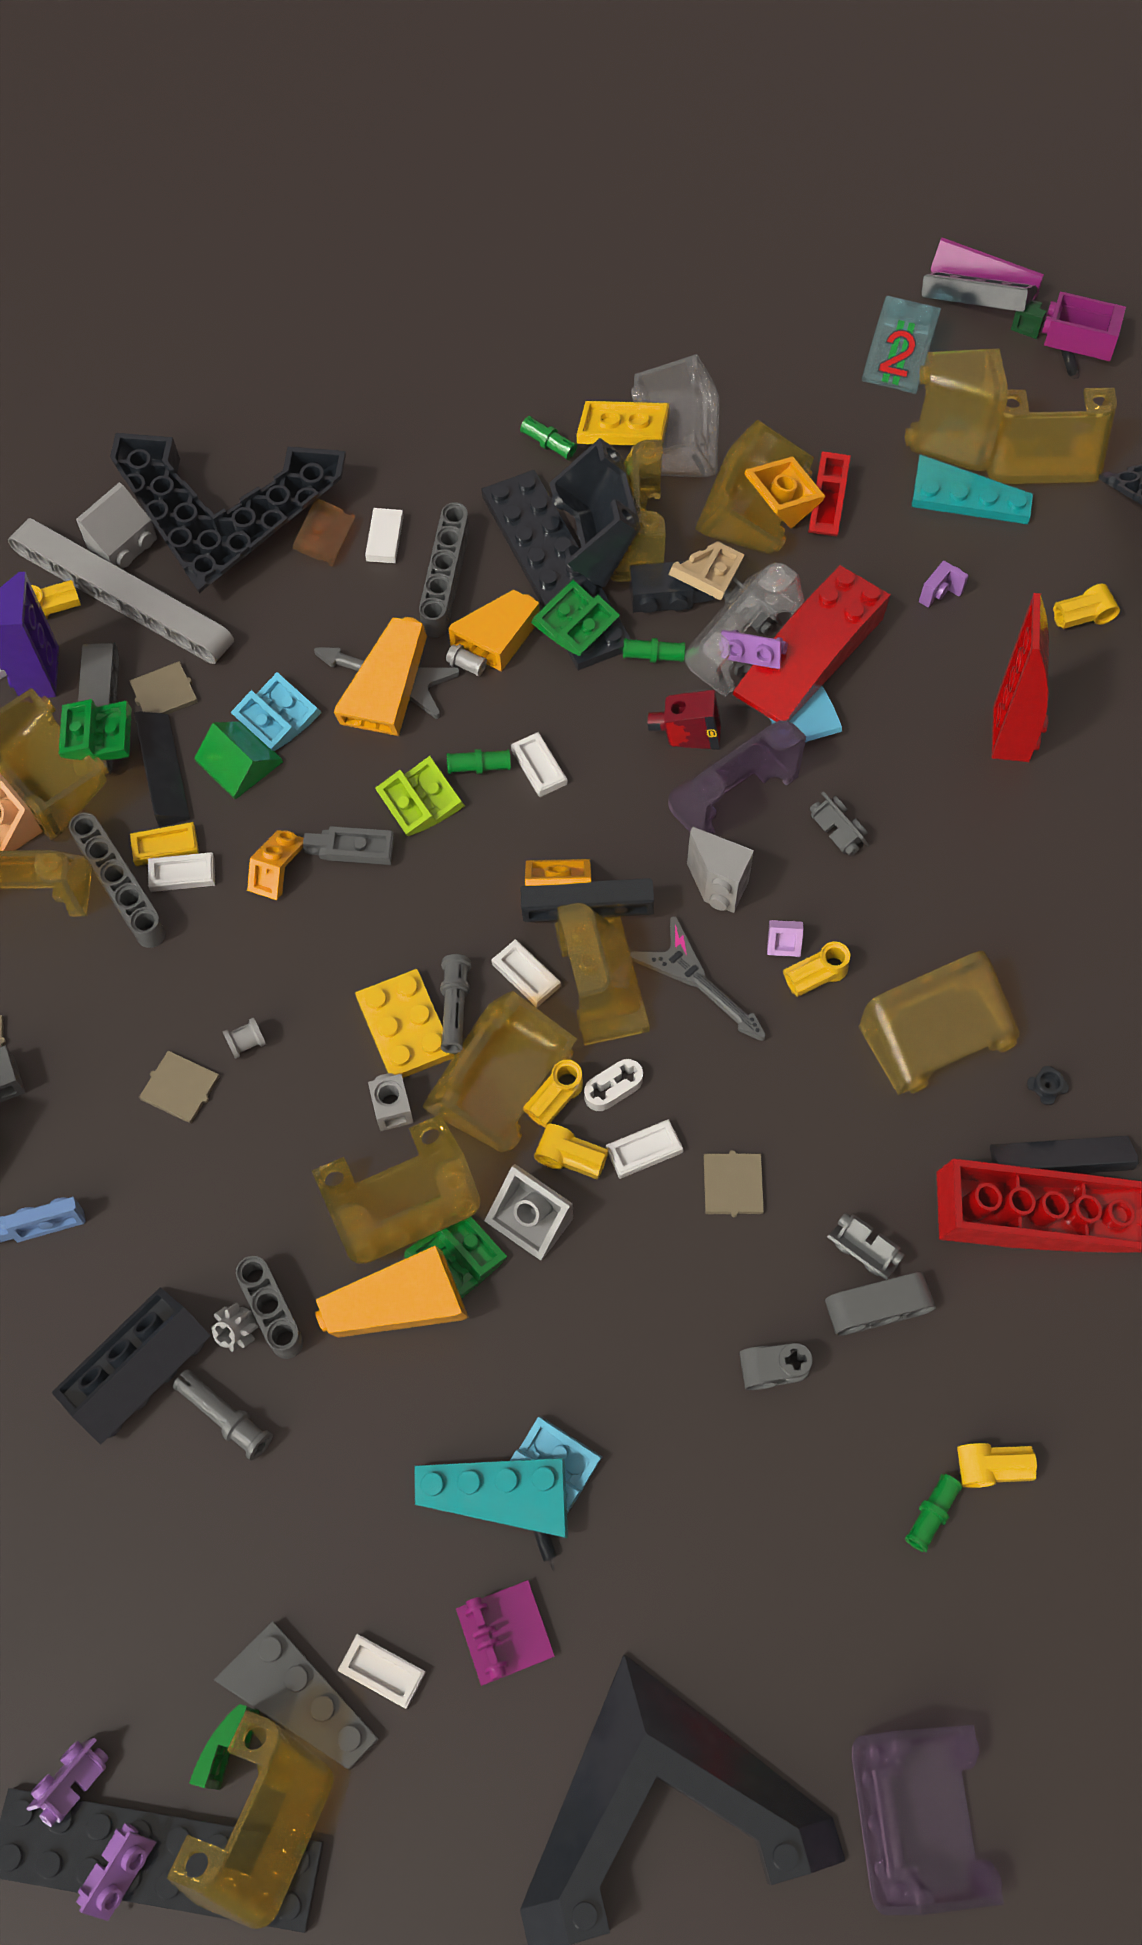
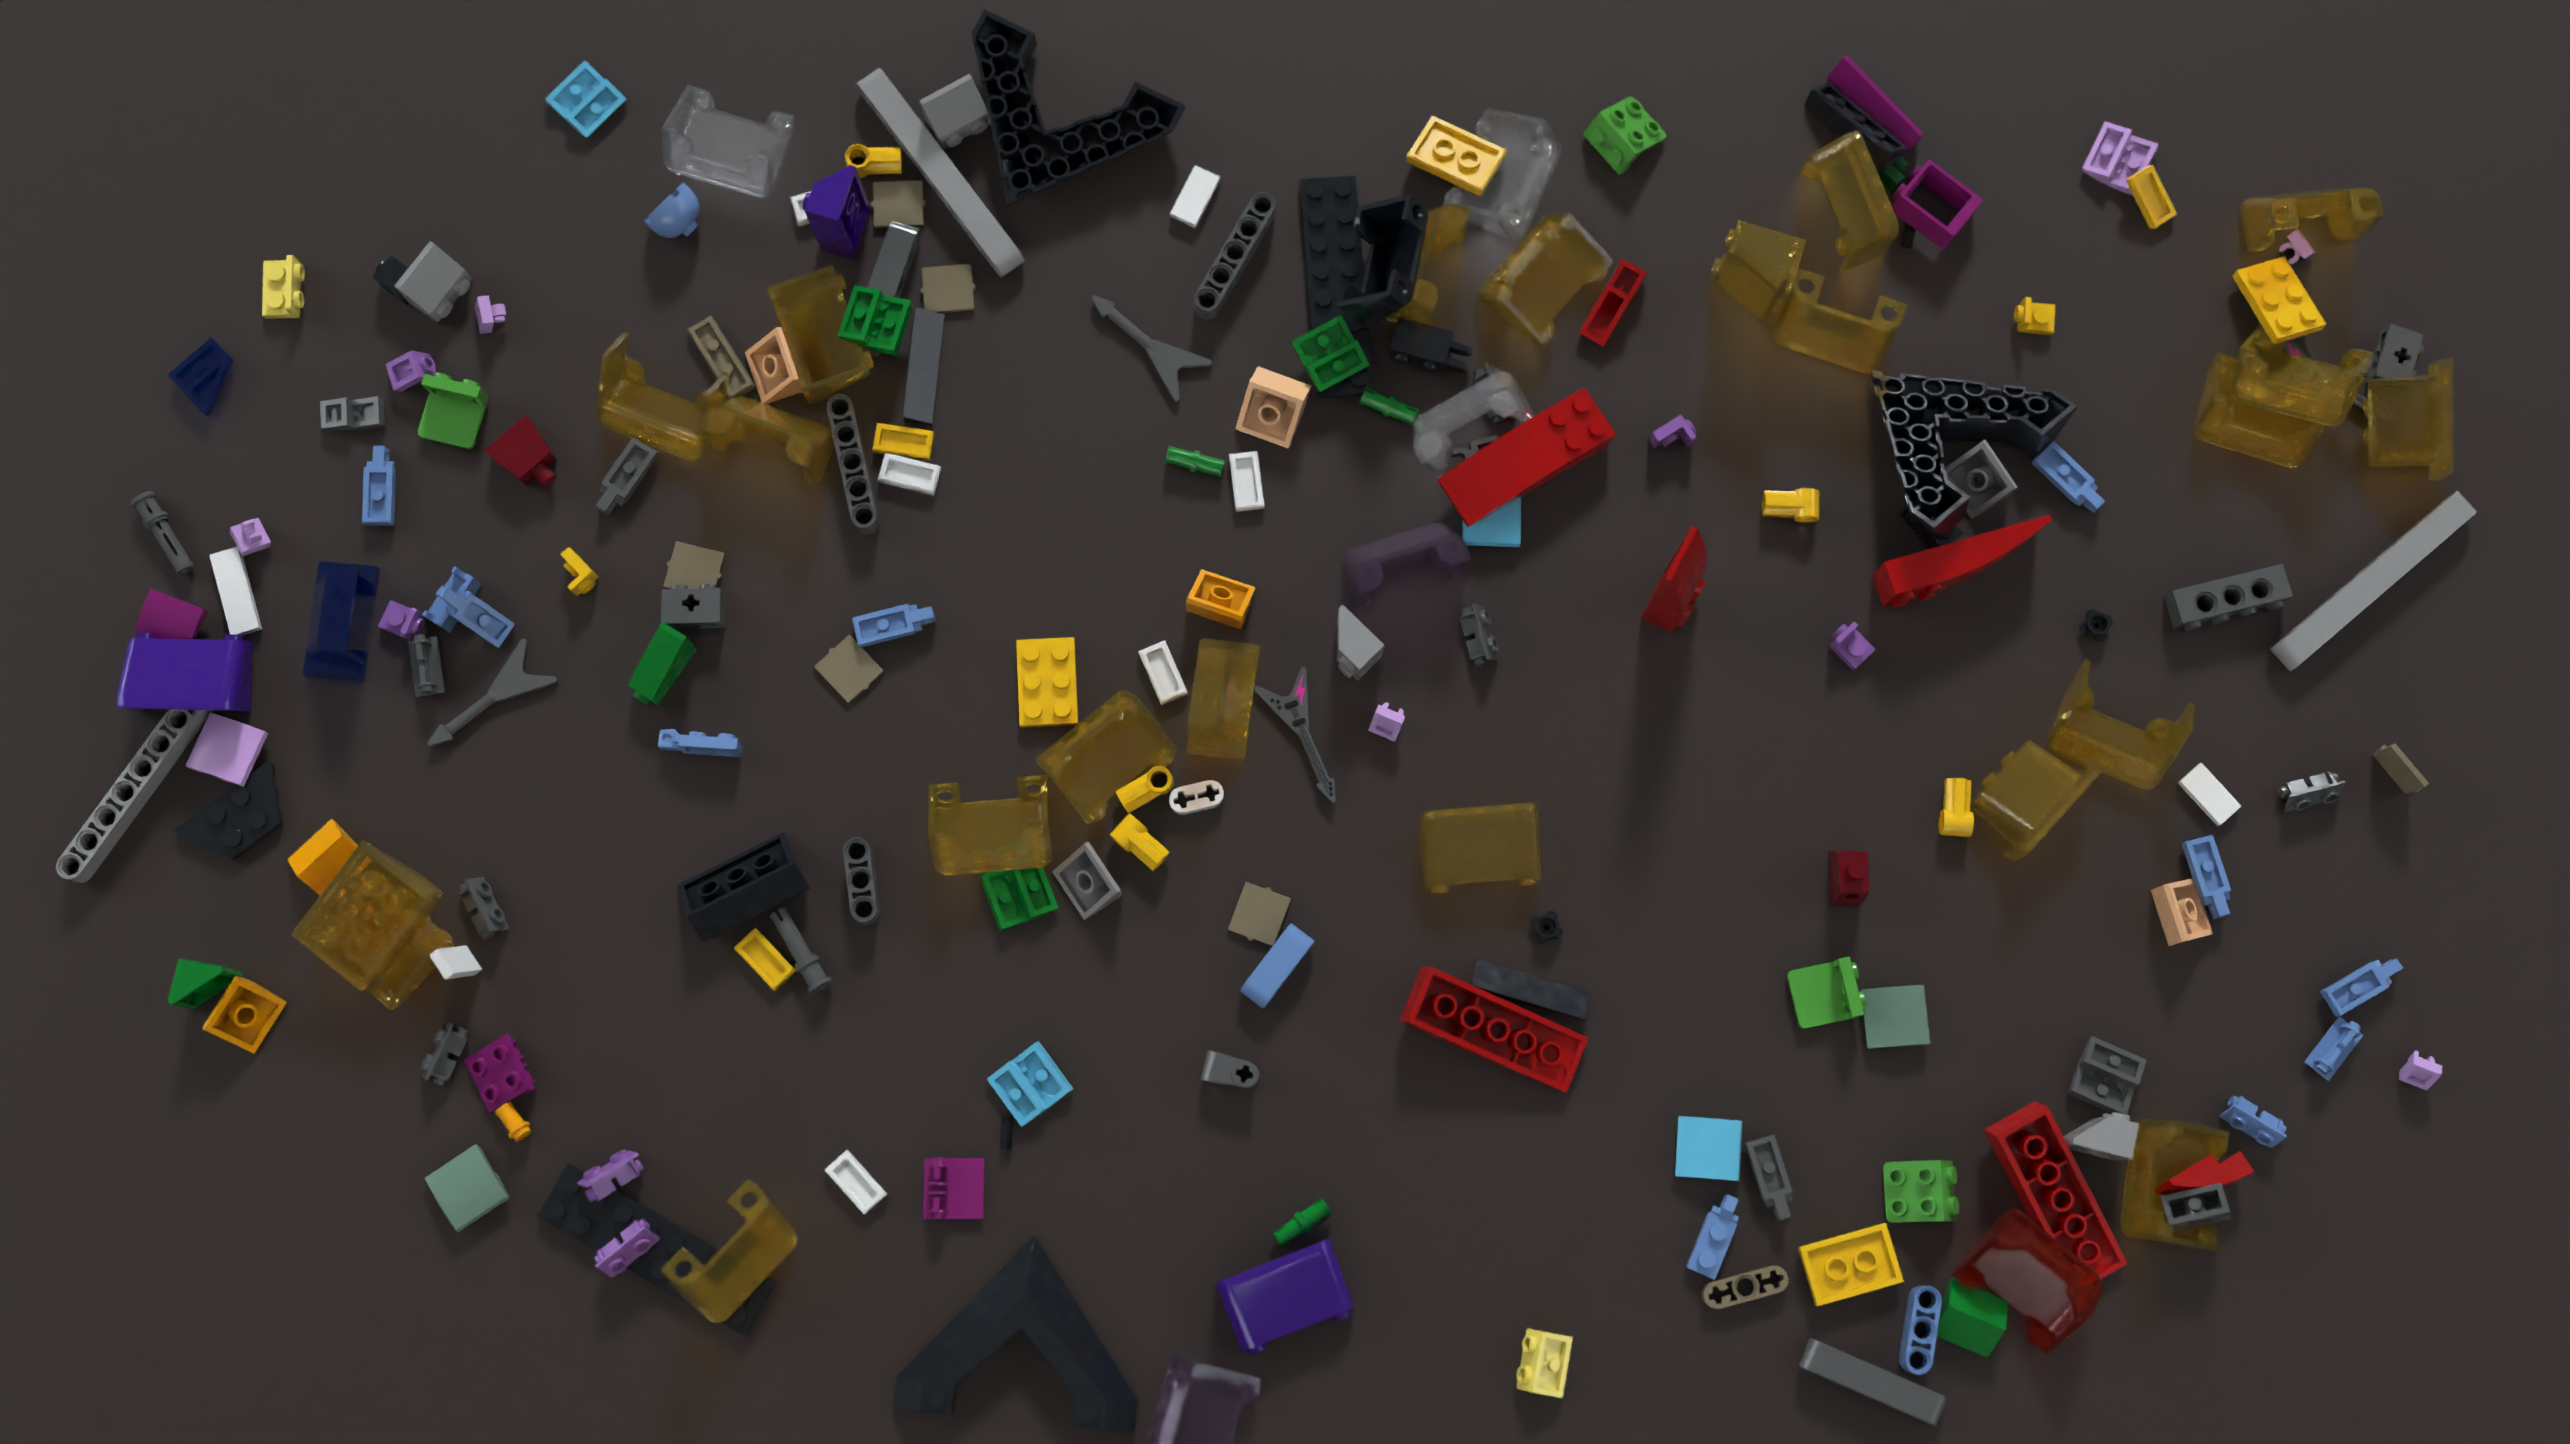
camera: 15 degrees right, 15 degrees up
(84, 628) = (898, 202): none -> dark tan piece
(183, 1440) = (765, 959): none -> yellow tile
(209, 1021) = (891, 623): none -> medium blue hinge
(215, 1757) = (716, 1200): green slope -> none
(234, 1327) = (829, 887): light grey gear -> none
(235, 757) = (990, 380): green slope -> none
(244, 1038) = (913, 647): light grey bush -> none
(269, 863) = (988, 494): light orange bracket -> none
(276, 712) = (1038, 347): medium azure slope -> none
(293, 1693) = (787, 1172): dark grey wing -> none
(323, 531) = (1141, 175): clear orange plate -> none
(351, 845) = (1059, 503): dark grey hinge -> none
(384, 682) = (1140, 356): light orange slope -> none
(393, 1114) = (1016, 758): light grey brick -> none
(397, 1297) = (963, 912): light orange slope -> none
(420, 797) = (1133, 476): lime slope -> none
(454, 990) = (1098, 668): dark grey pin -> none
(464, 659) = (1220, 355): light grey pin -> none
(496, 628) = (1259, 335): light orange slope -> none
(503, 1492) = (989, 1089): teal wing -> none
(537, 687) = (1272, 407): none -> light nougat slope
(548, 437) = (1382, 144): green pin -> none
(606, 898) = (1234, 631): black slope -> none
(644, 1149) = (1200, 859): white tile -> none
(689, 720) = (1389, 492): dark red torso -> none
(709, 569) = (1467, 349): tan wing -> none
(755, 649) = (1460, 439): medium lavender hinge -> none
(769, 362) = (1623, 133): none -> bright green bracket
(778, 1230) = (1277, 965): none -> medium blue beam
(786, 489) = (1570, 287): light orange slope -> none
(816, 970) = (1398, 761): yellow piece -> none
(878, 1256) = (1344, 1015): dark grey hinge -> none
(880, 1303) = (1330, 1053): dark grey beam -> none
(901, 344) = (1754, 160): clear light blue slope -> none
(955, 1609) = (1285, 1296): none -> dark purple windscreen
(966, 493) = (1738, 340): teal wing -> none
(986, 1465) = (1358, 1204): yellow piece -> none
(1020, 326) = (1855, 198): none -> clear yellow windscreen

